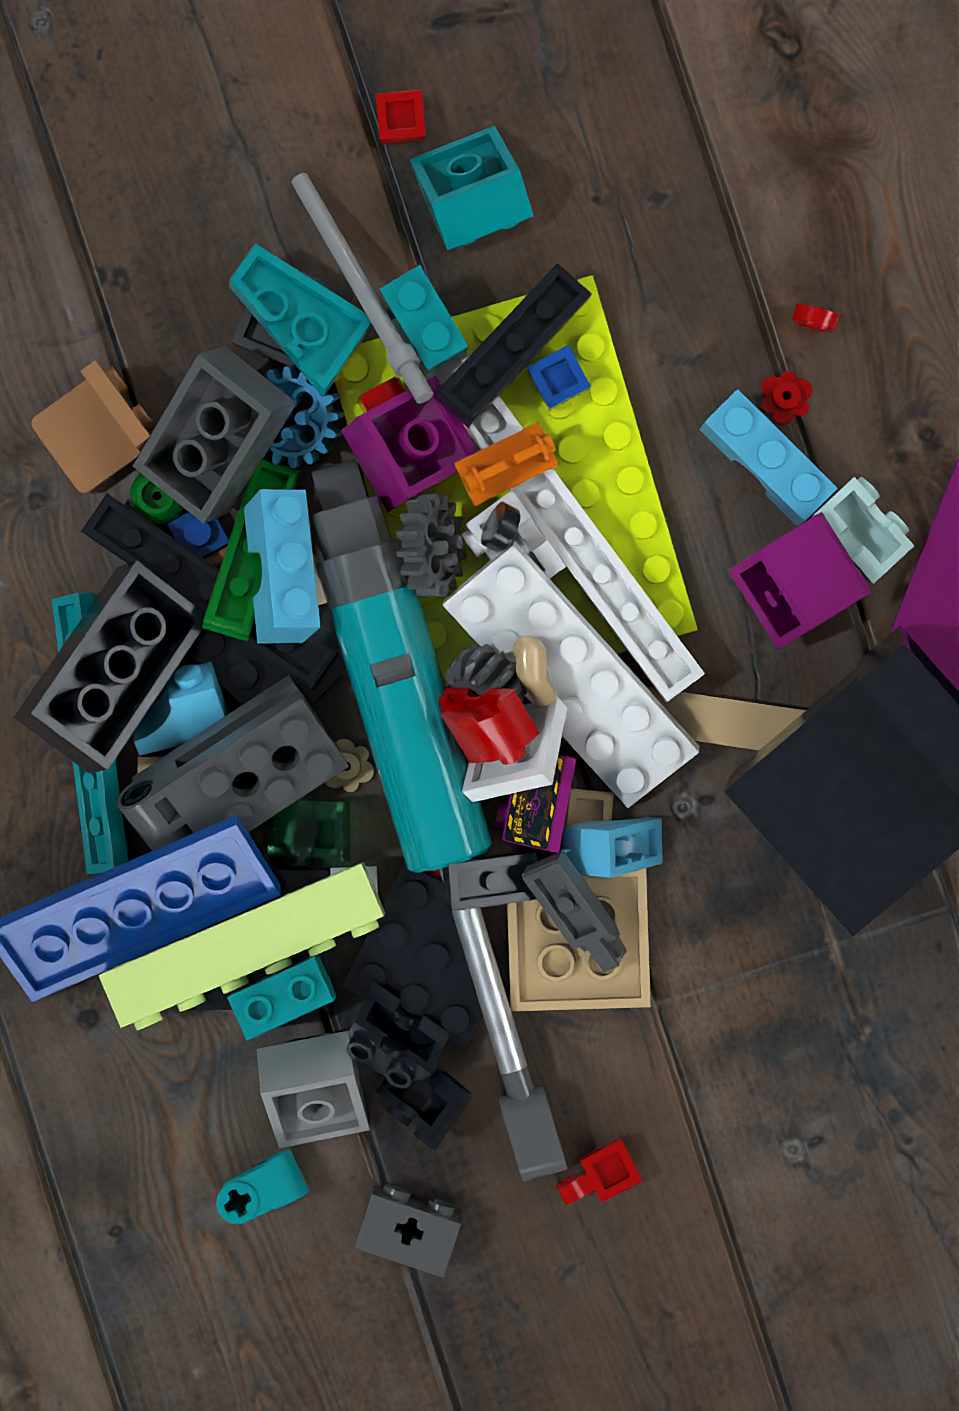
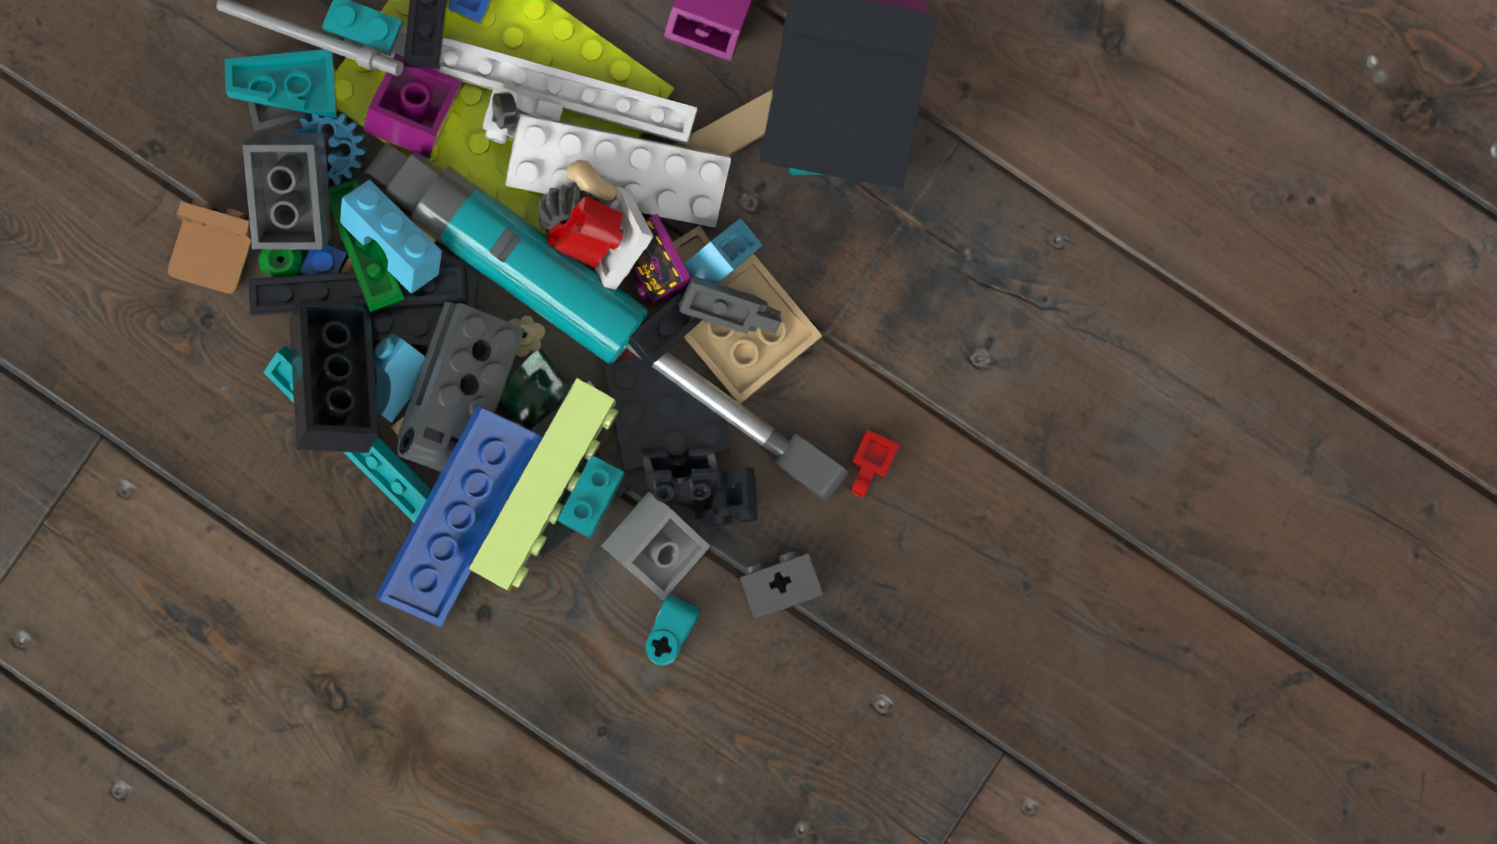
camera: 40 degrees left, 5 degrees down
(381, 394) = (370, 90): red tile -> none
(431, 545) = (471, 154): dark grey gear -> none
(507, 463) = (479, 72): orange hinge -> none

